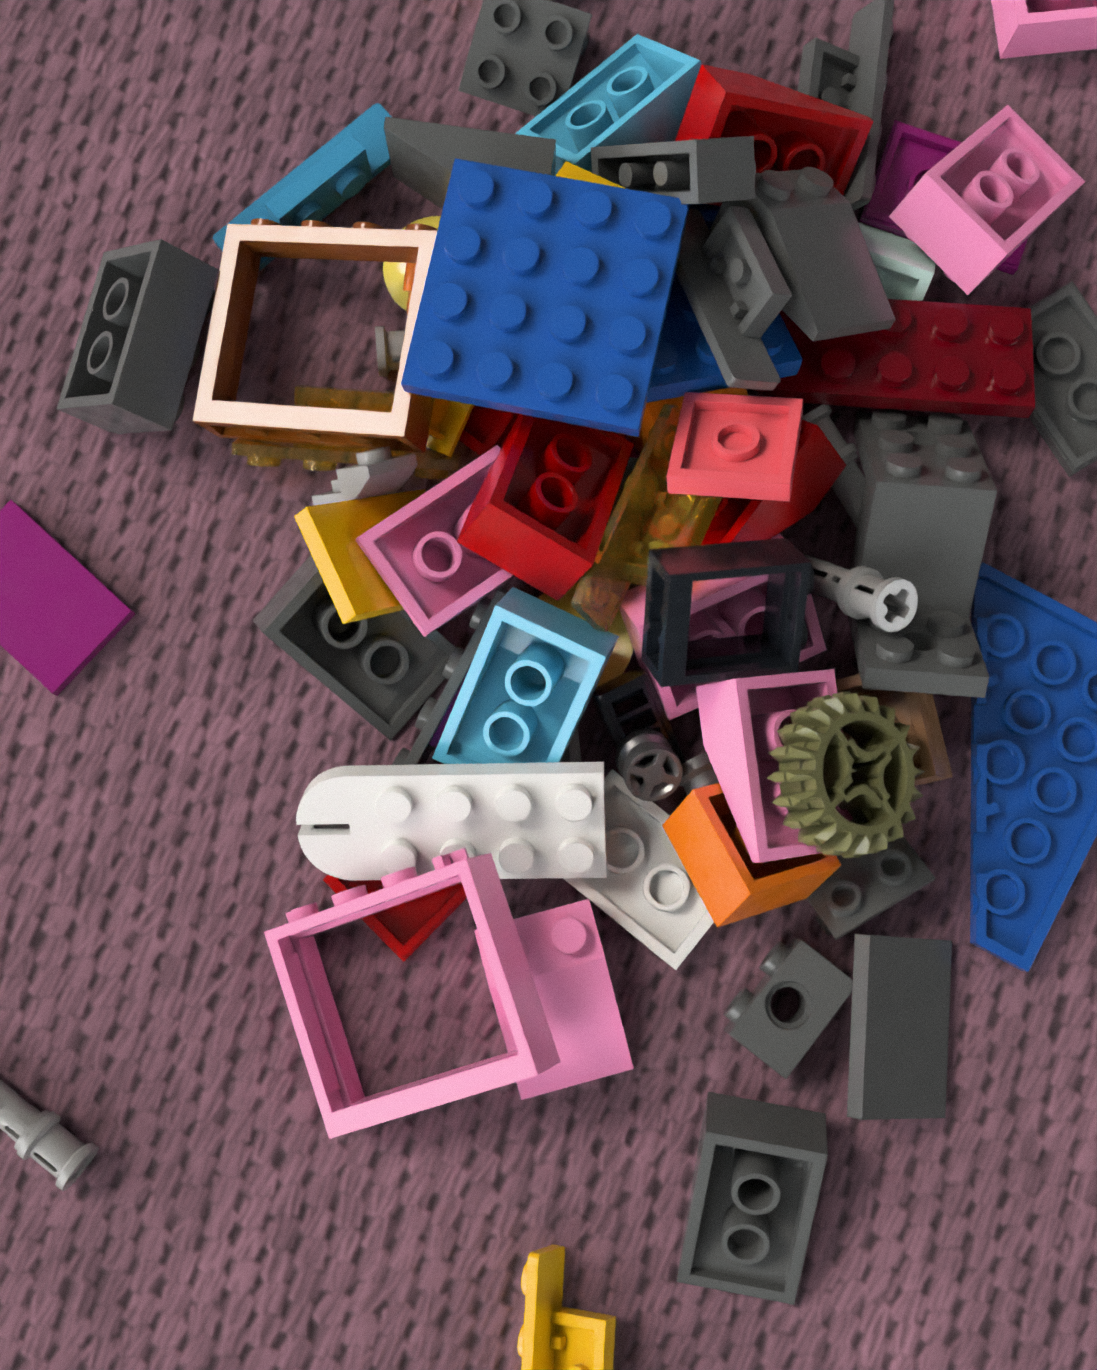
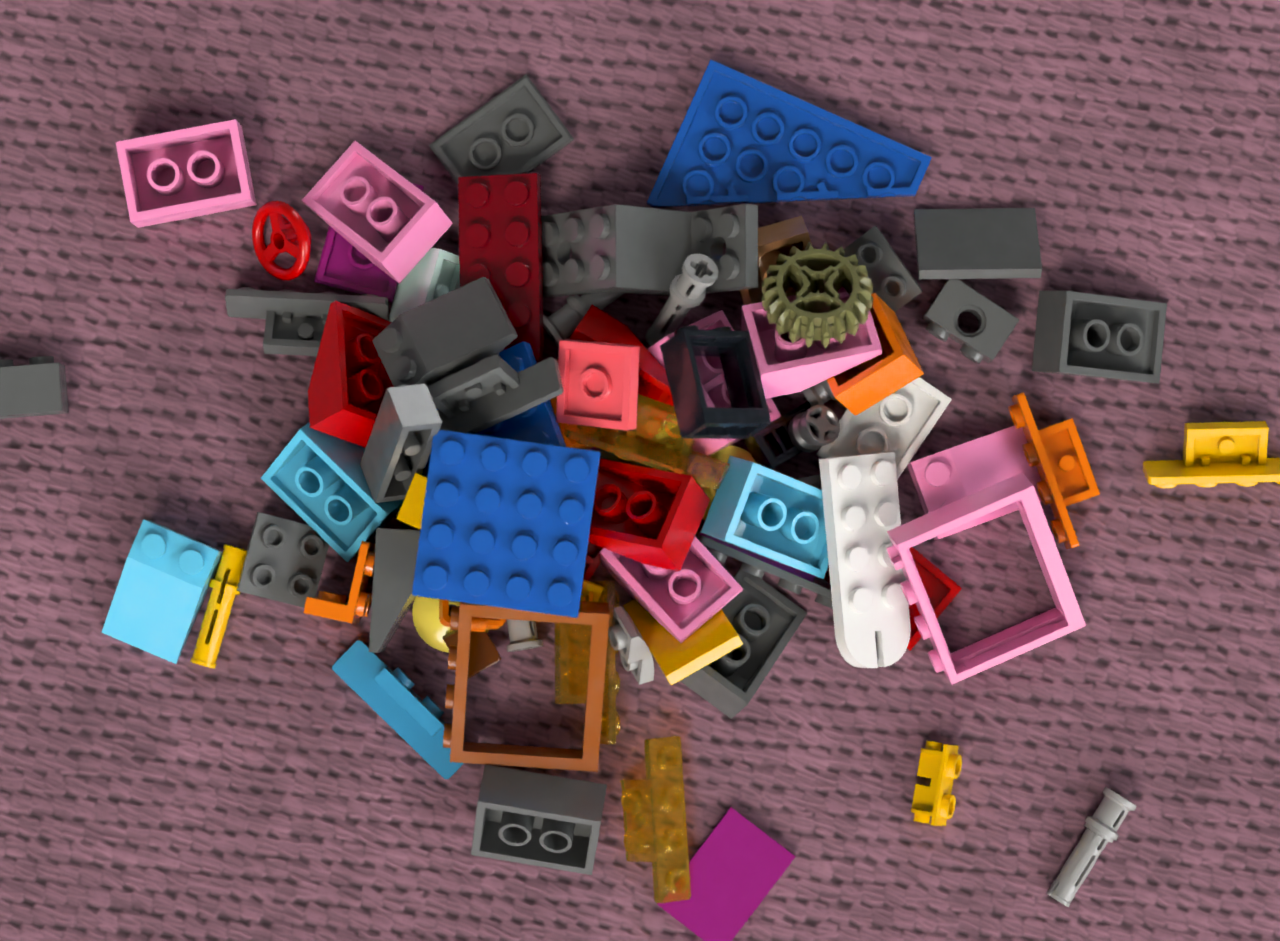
camera: 100 degrees left, 5 degrees up
(107, 896) = (936, 798): none -> yellow hinge
(122, 508) = (657, 819): none -> clear yellow bracket
(378, 287) = (482, 651): none -> reddish brown slope
(455, 104) = (333, 605): none -> orange bracket
(568, 1122) = (1060, 464): none -> orange bracket
(957, 79) = (286, 236): none -> red piece

